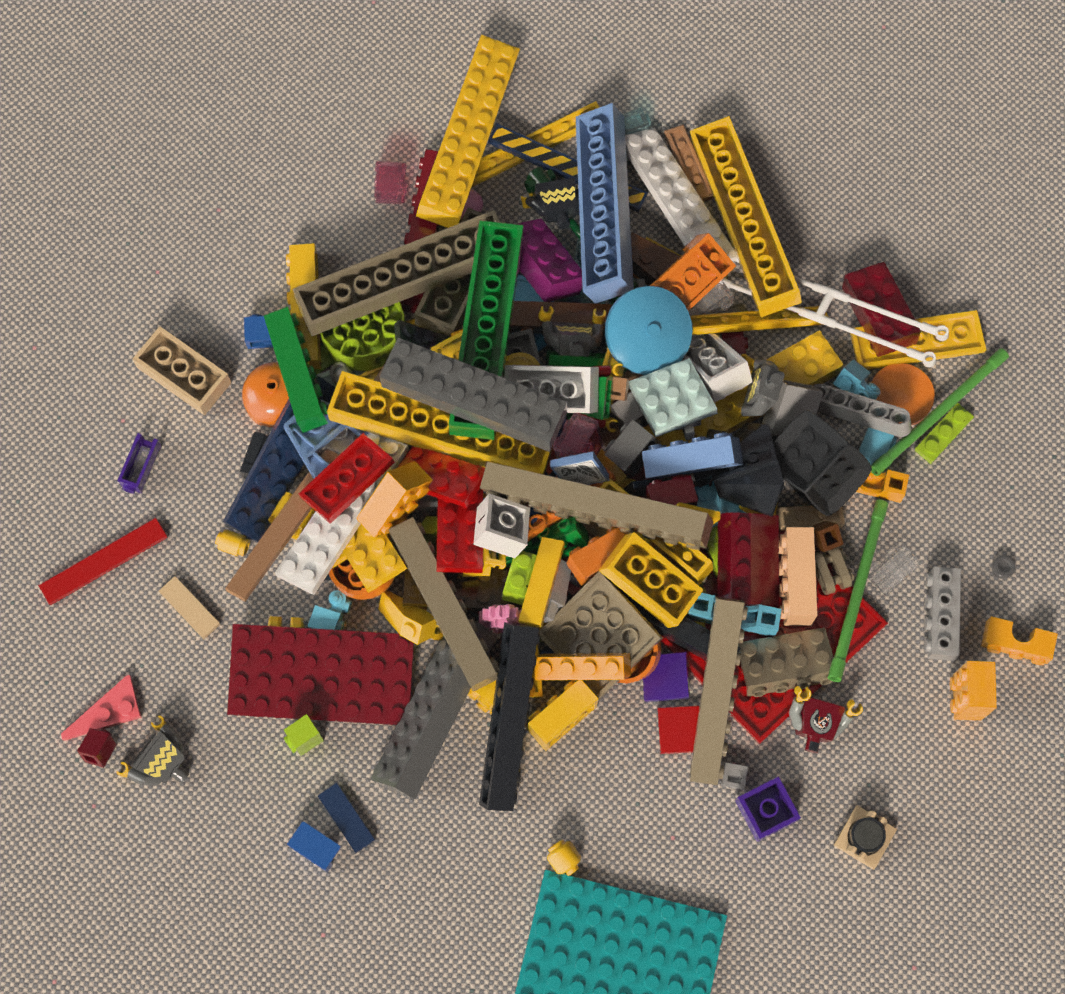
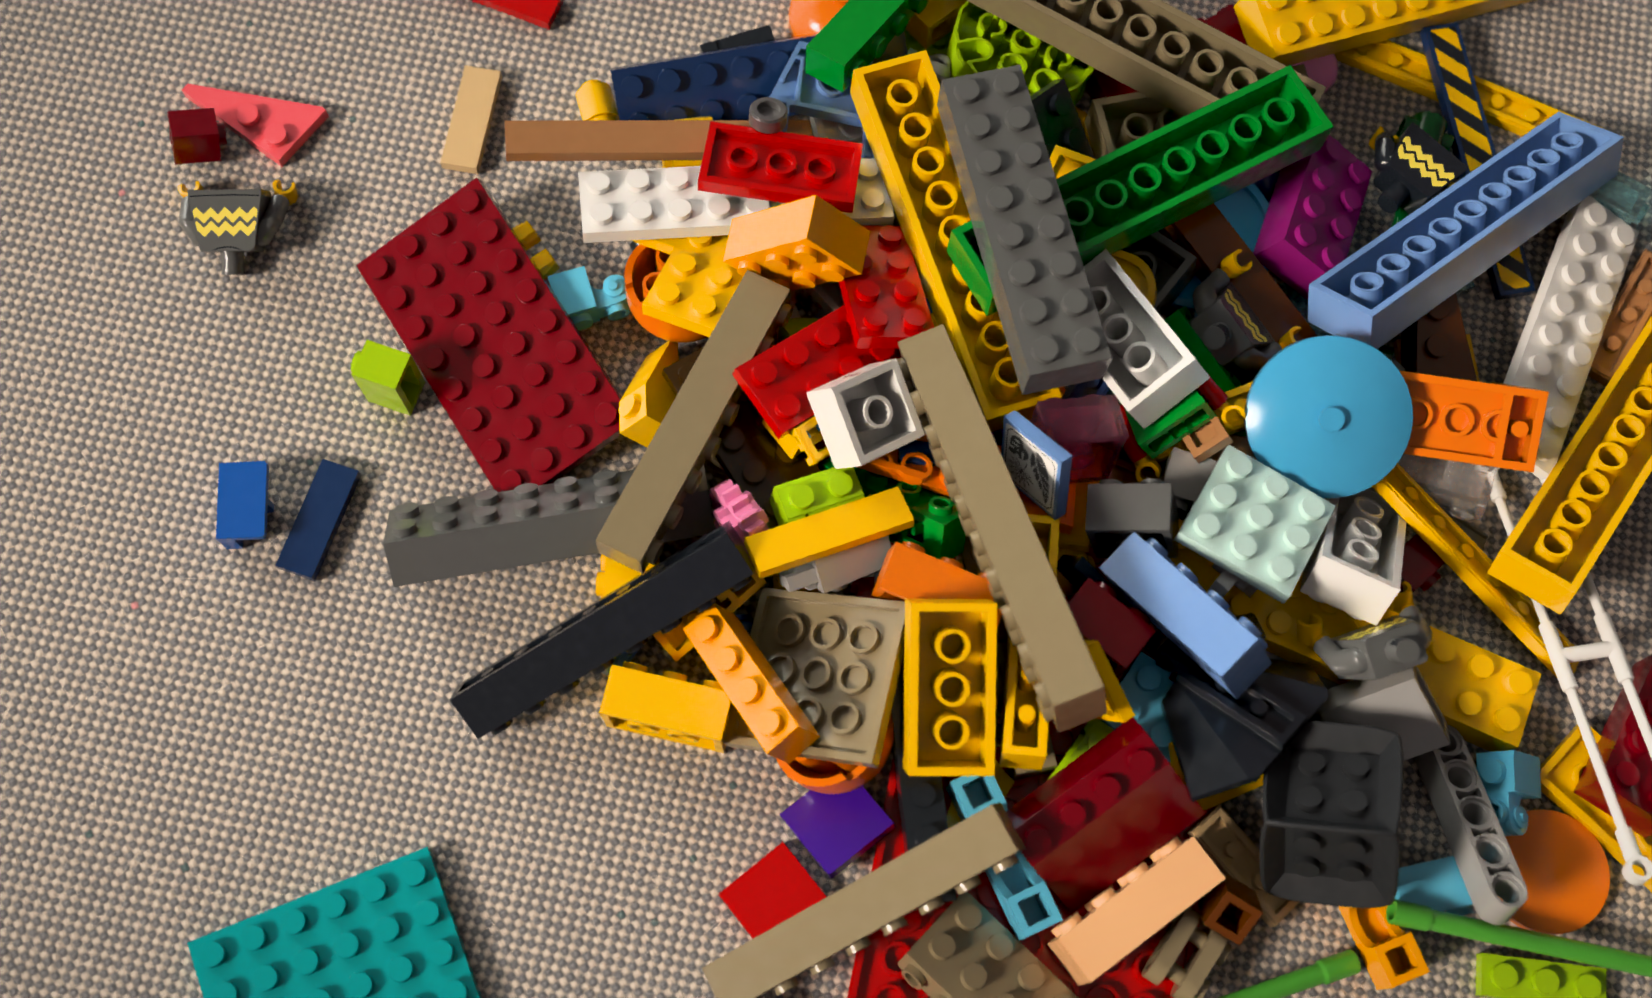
camera: 50 degrees right, 0 degrees up
(316, 465) = (768, 115): none -> flat silver tile
(564, 857) = (461, 861): yellow head -> none

